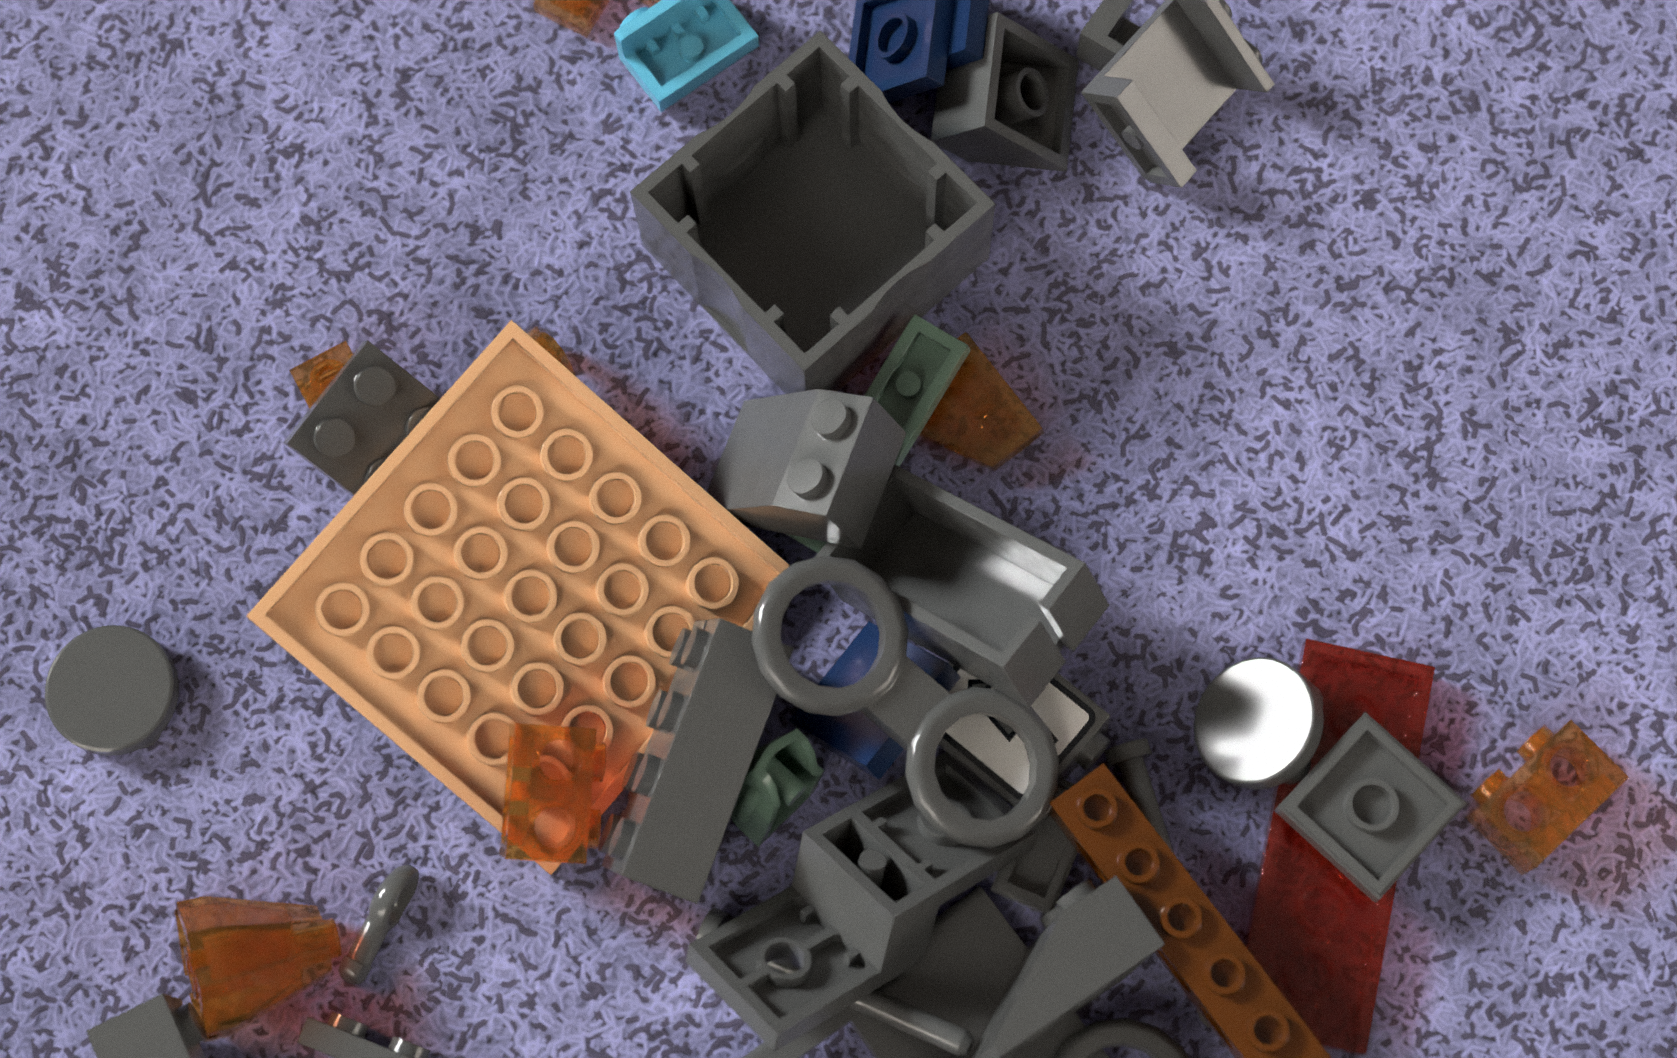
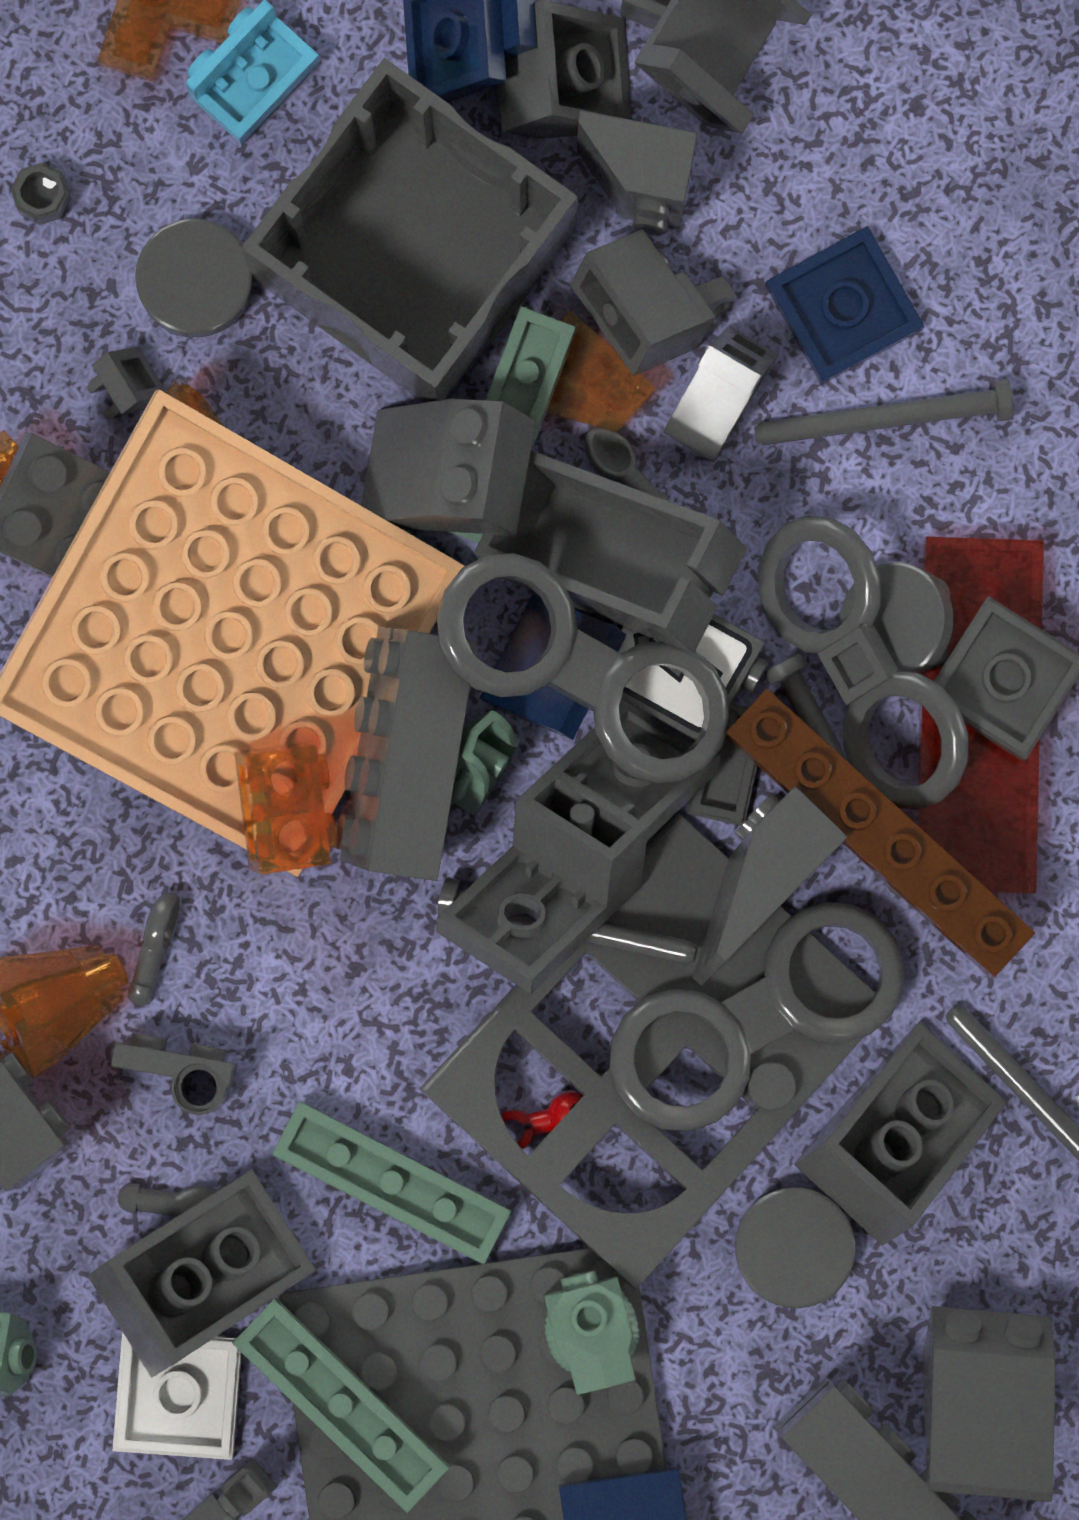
camera: 15 degrees left, 10 degrees up
(445, 121) = (41, 193): none -> dark grey tile
(484, 315) = (127, 380): none -> dark grey tile
(581, 232) = (194, 278): none -> dark grey tile
(983, 488) = (616, 460): none -> dark grey piece
(1046, 341) = (645, 306): none -> dark grey hinge
(1066, 198) = (639, 167): none -> dark grey slope
(1108, 446) = (720, 392): none -> tile
(1213, 760) = (861, 661): none -> dark grey bar
(1258, 384) = (844, 305): none -> dark blue tile
(1403, 511) = (997, 401): none -> dark grey bar

